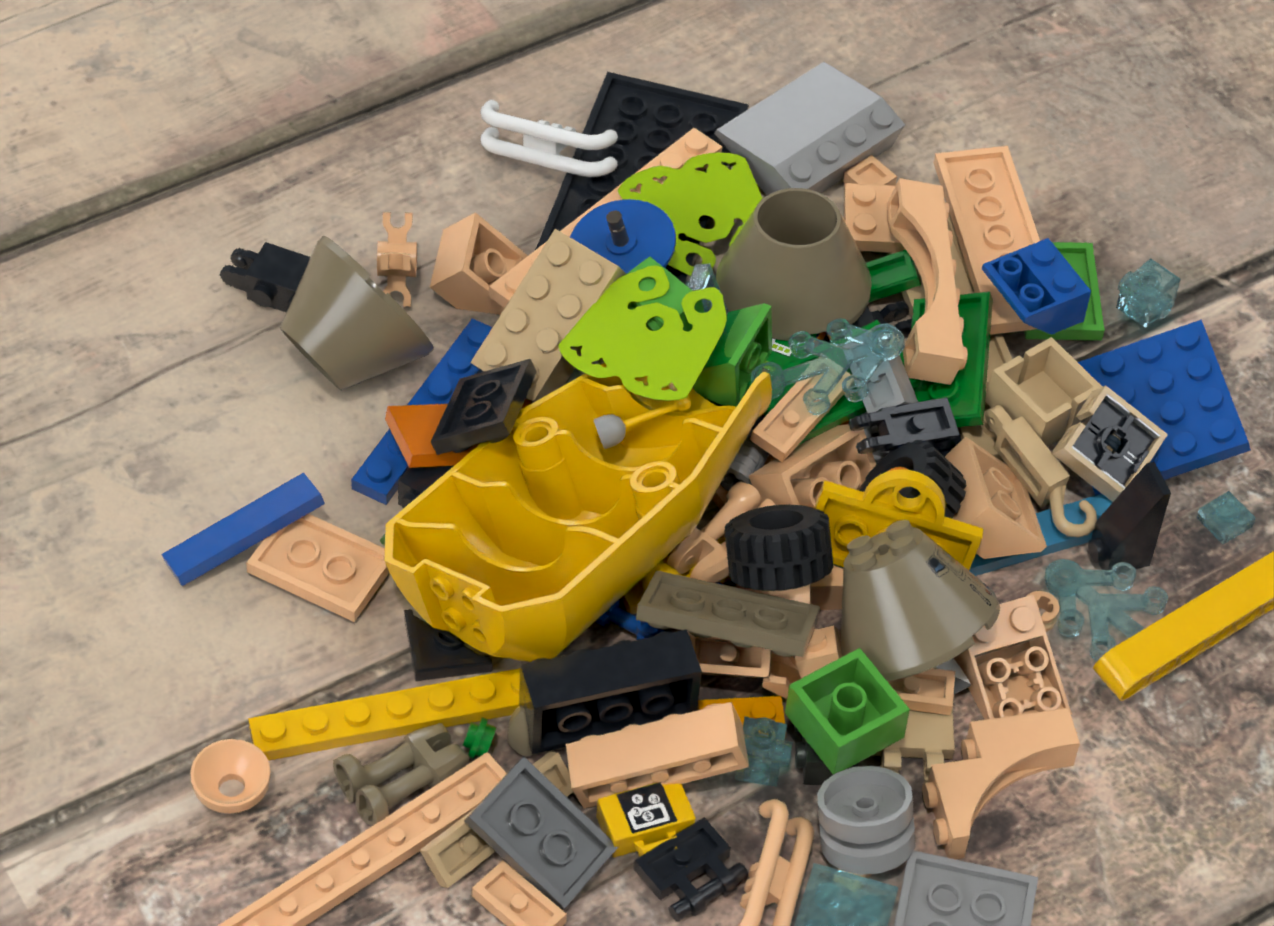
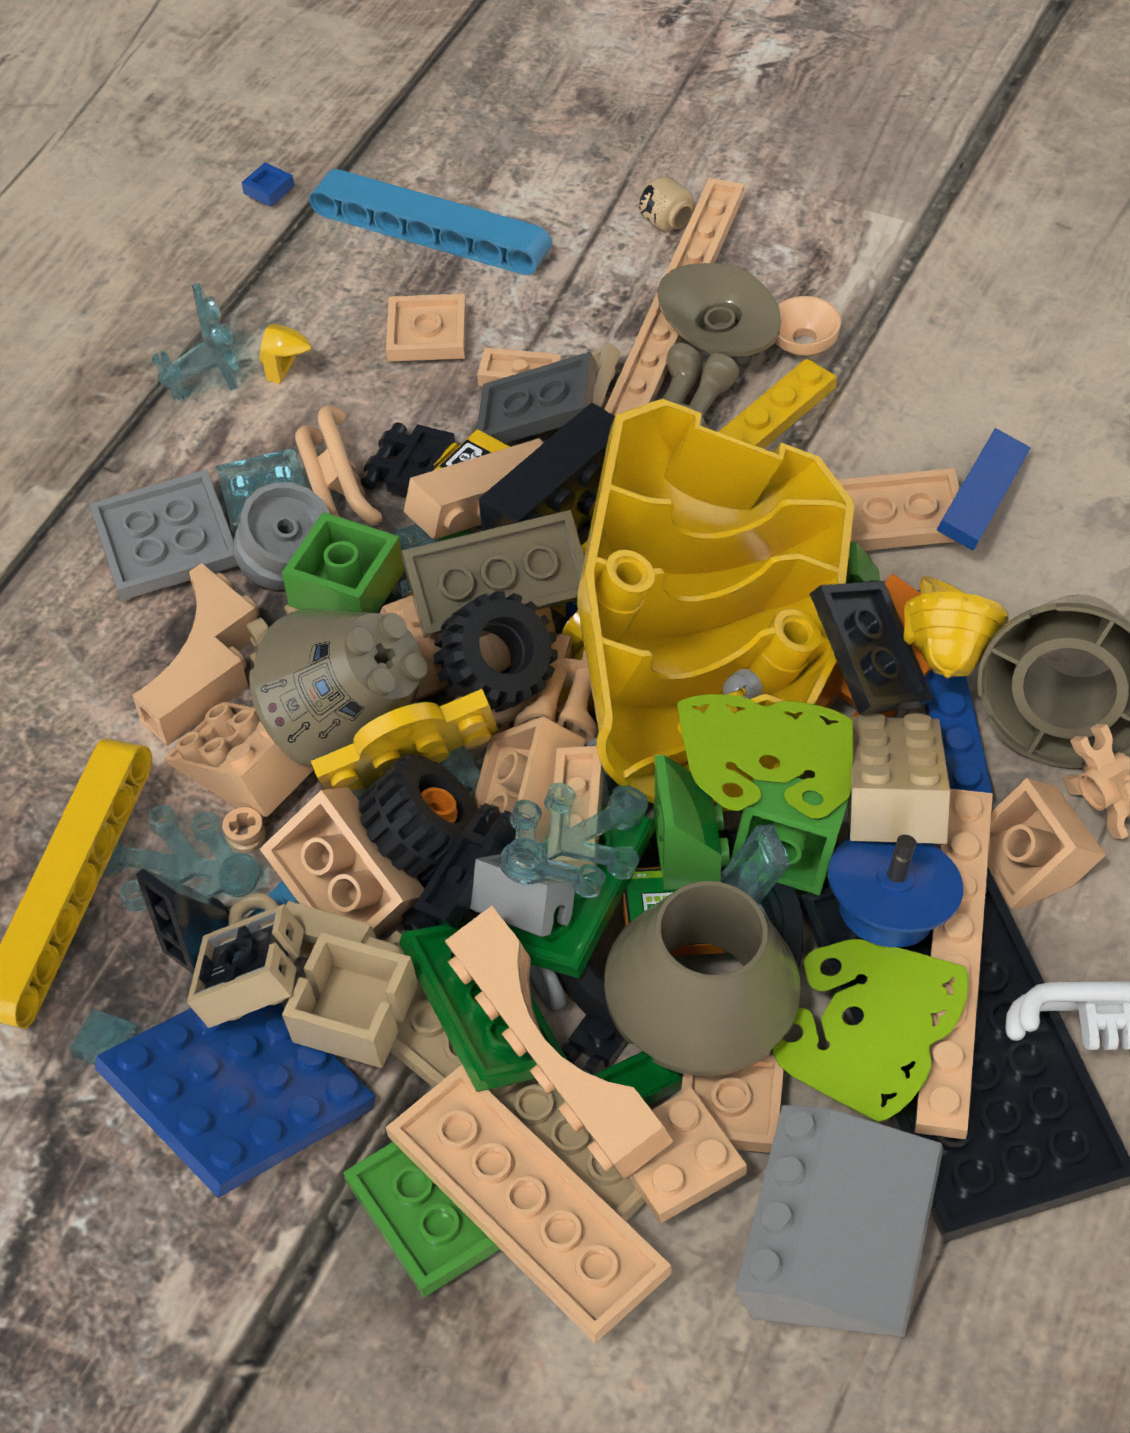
camera: 155 degrees right, 0 degrees up
(299, 823) = (720, 309): none -> dark tan hat
(412, 374) = (951, 626): none -> yellow head
(870, 172) = (730, 1225): light nougat plate -> none
(1040, 286) = (426, 1098): blue slope -> none
(1147, 293) = (317, 1249): clear light blue brick -> none

